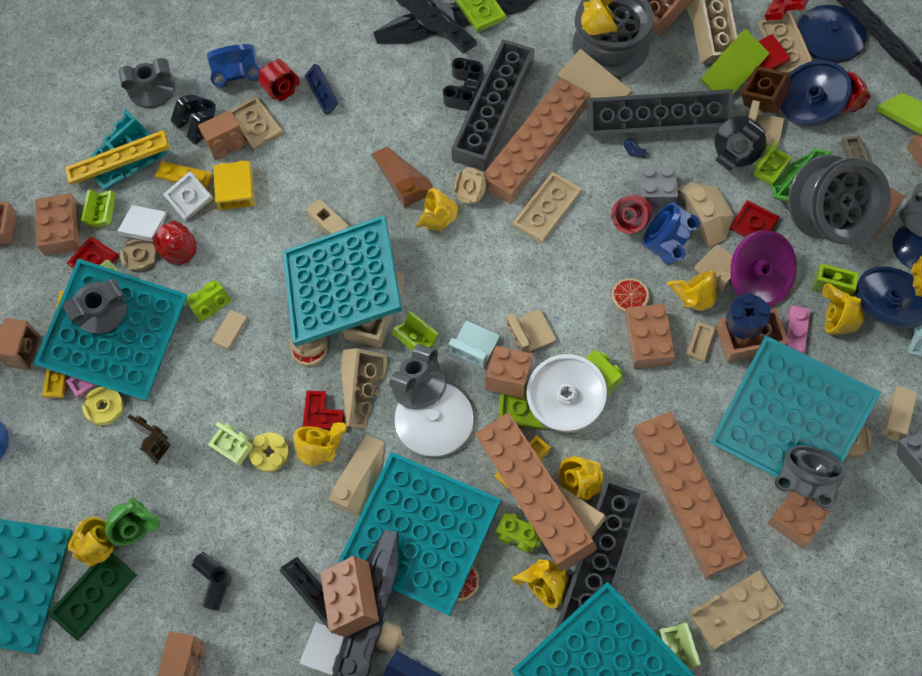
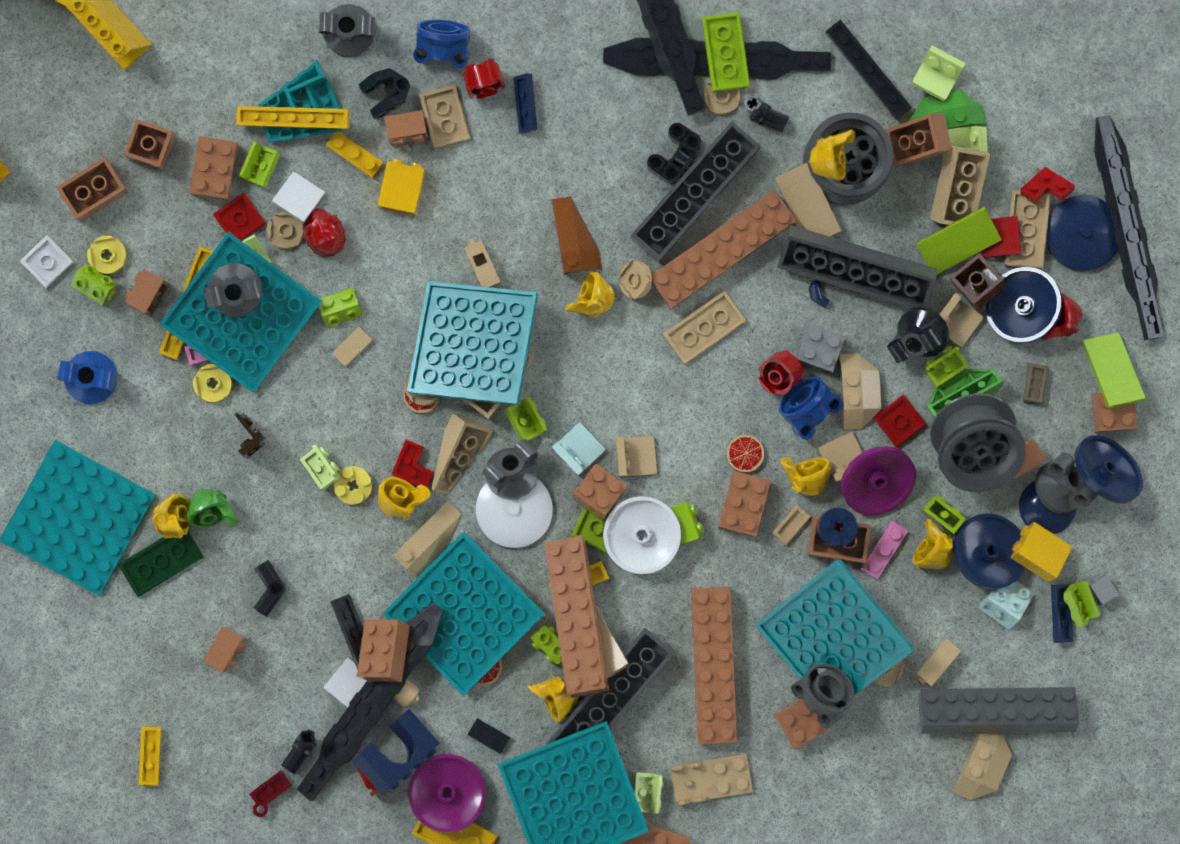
camera: 10 degrees right, 20 degrees up
(188, 196) = (352, 183): white tile -> none
(487, 38) = (721, 102): none -> tan tile
(490, 650) = (488, 735): none -> black tile
(524, 32) = (765, 114): none -> black piece
(581, 477) = (624, 617): yellow head -> none

